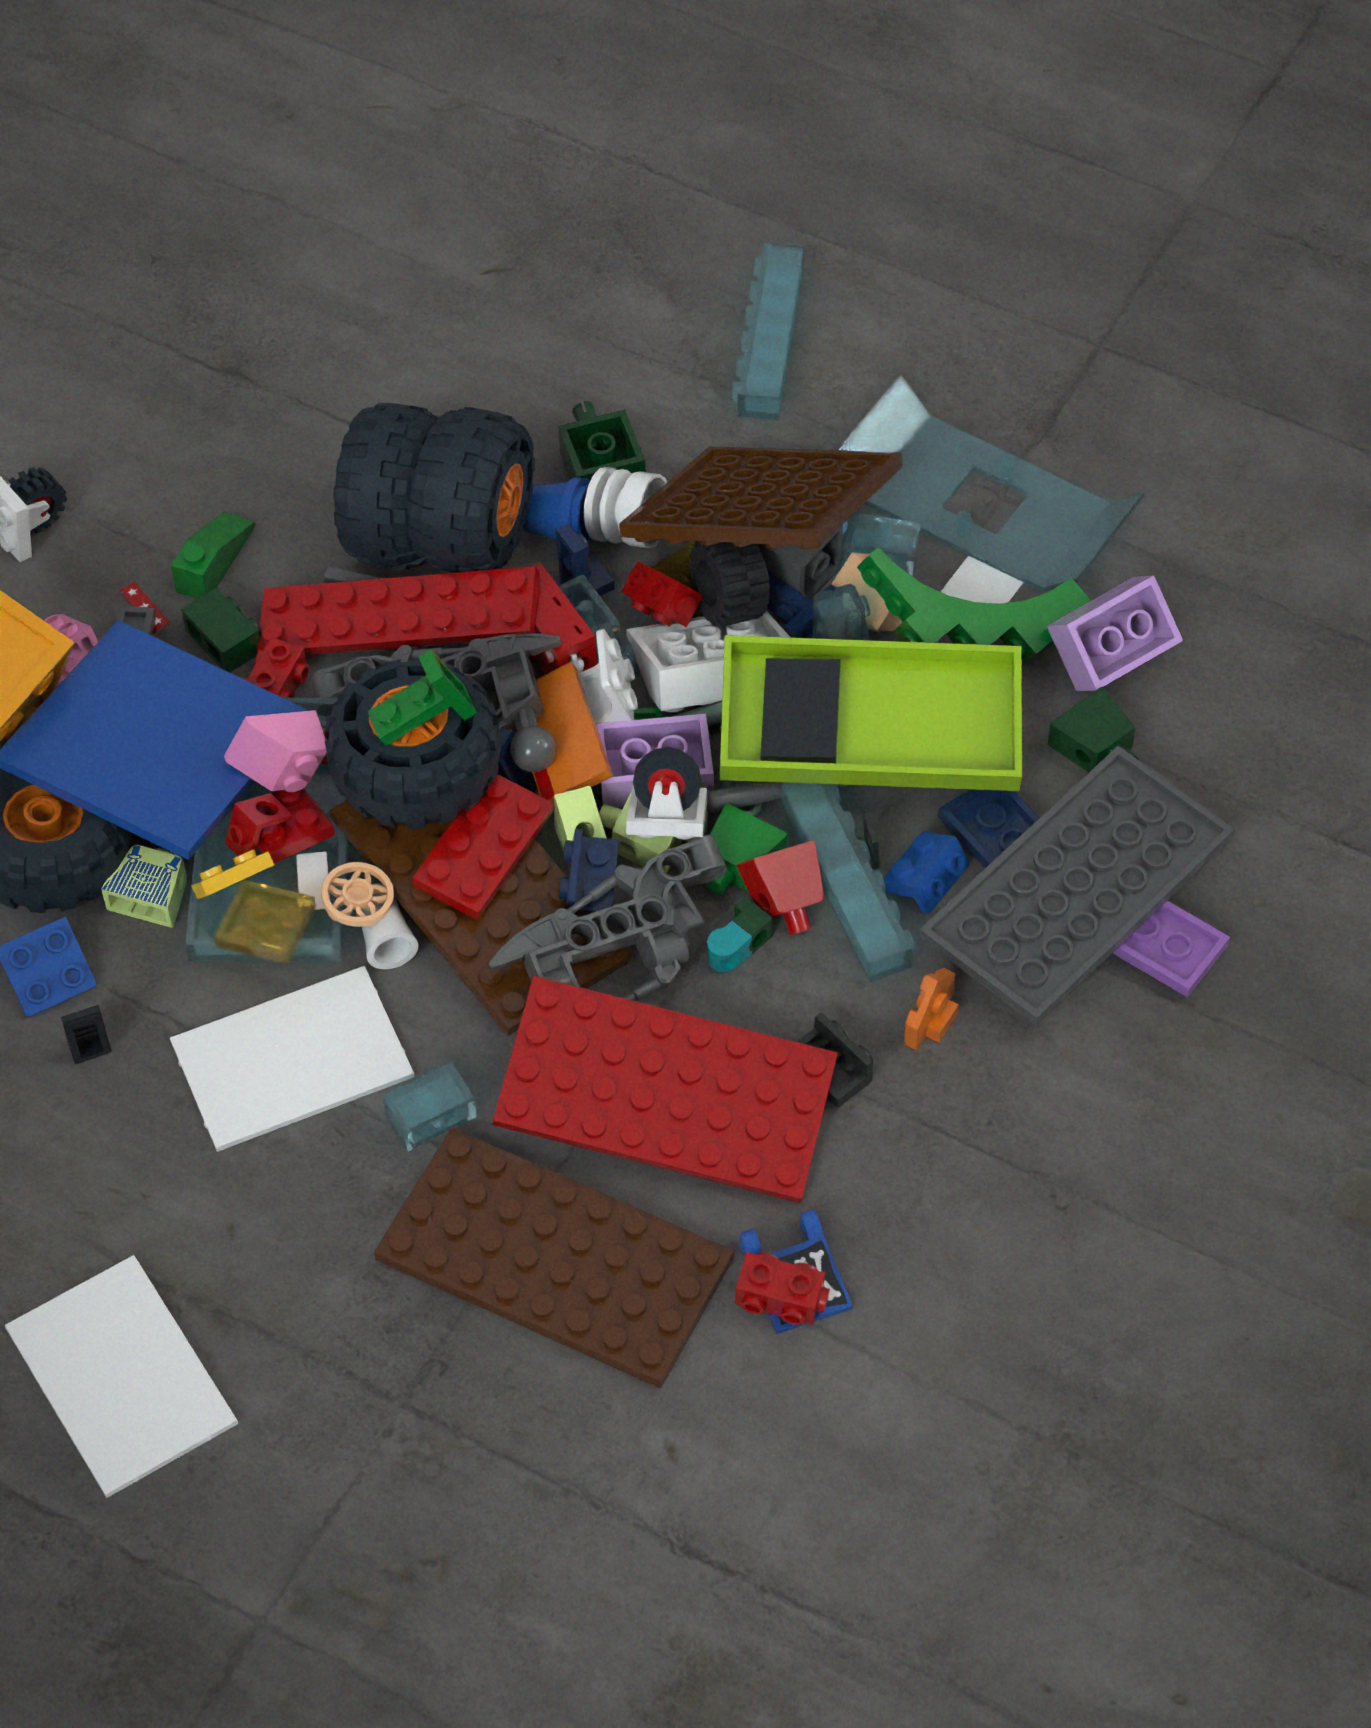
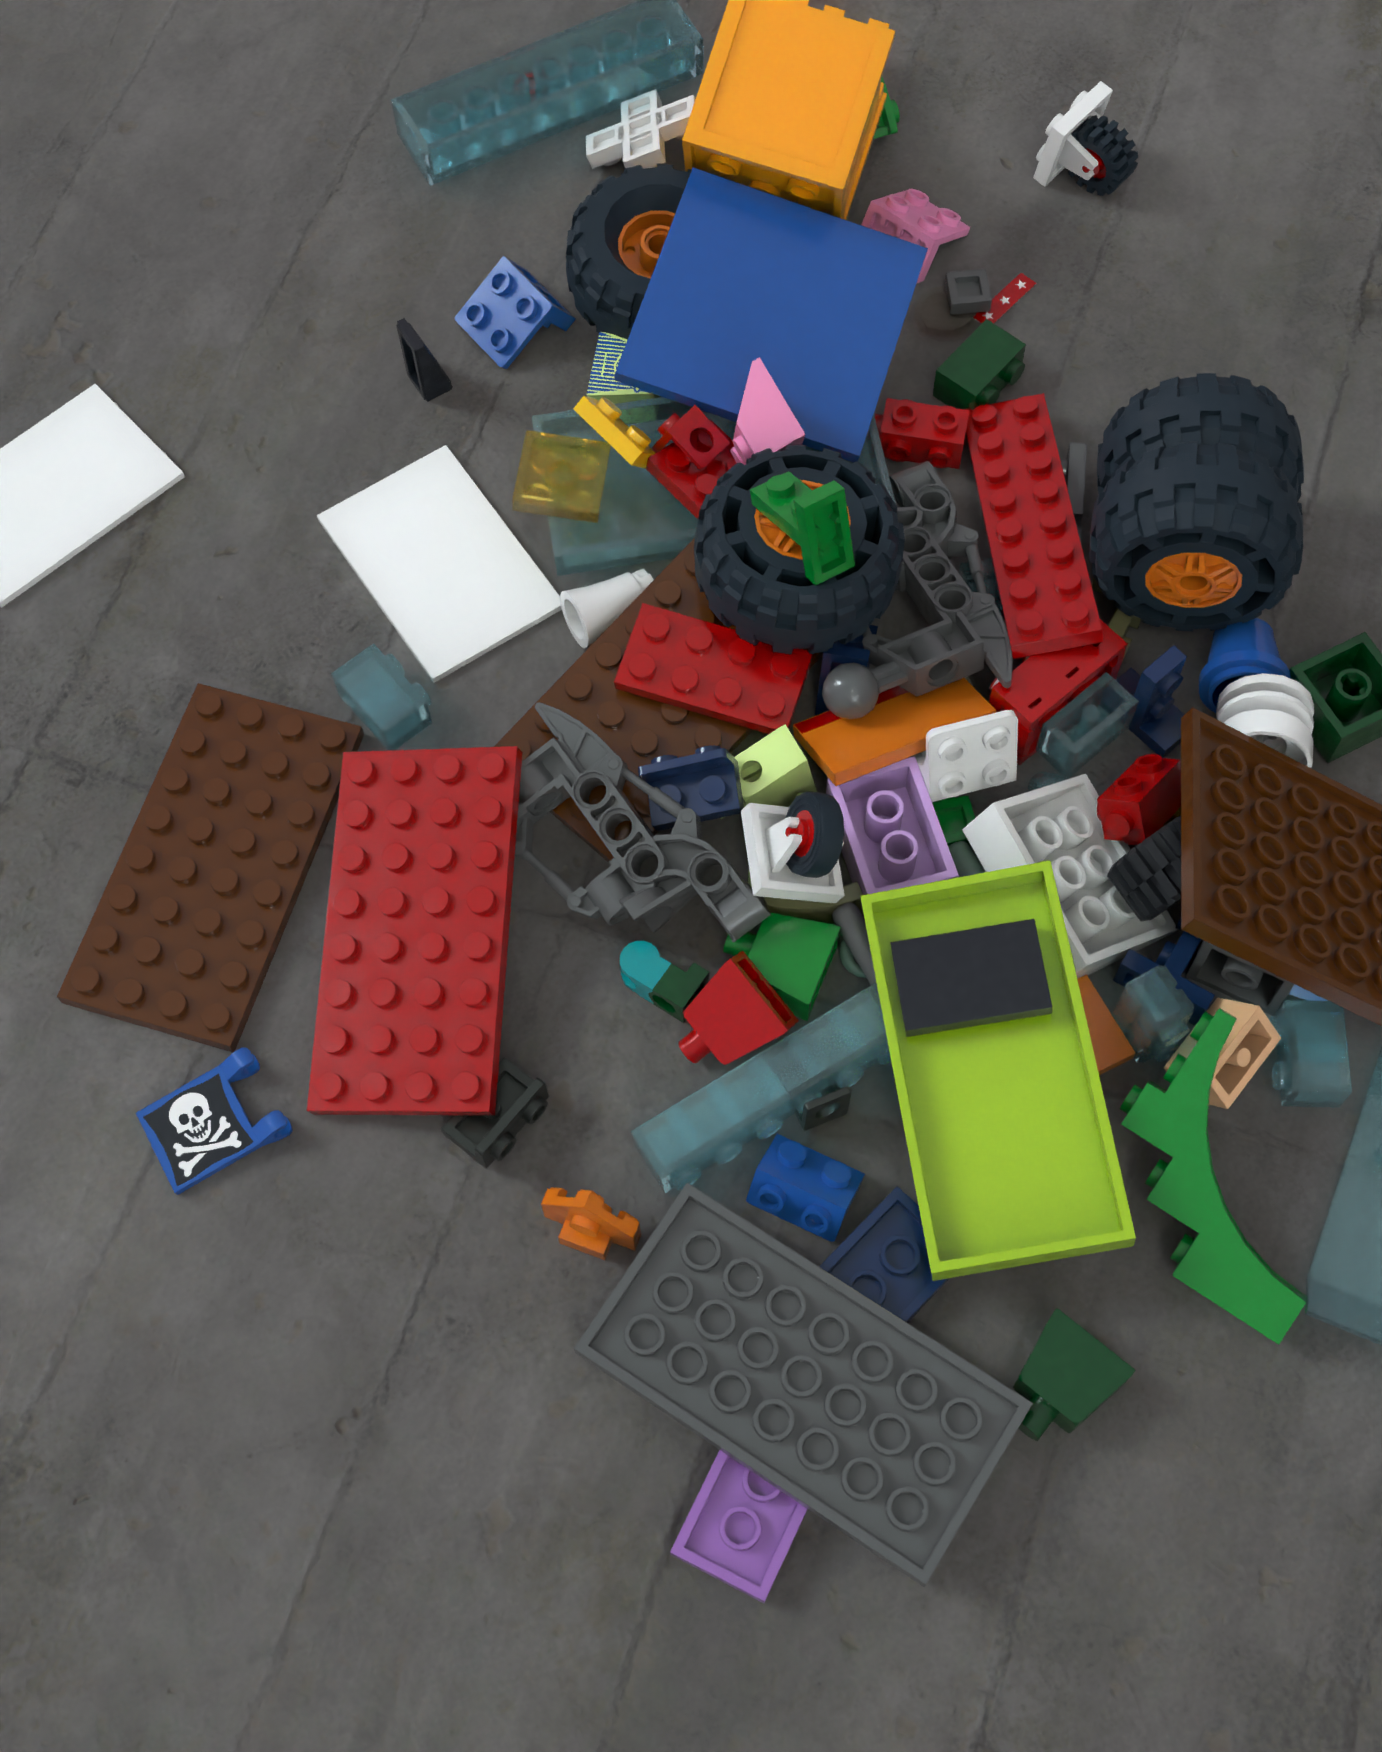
camera: 80 degrees right, 10 degrees up
(209, 554) = (1085, 336): green slope -> none
(311, 872) = (639, 517): white sticker -> none
(357, 894) = (619, 558): light nougat wheel -> none
(781, 1288) = (170, 1102): red brick -> none
(981, 583) = (1284, 1195): white sticker -> none
(1115, 633) = (1231, 1378): lavender brick -> none

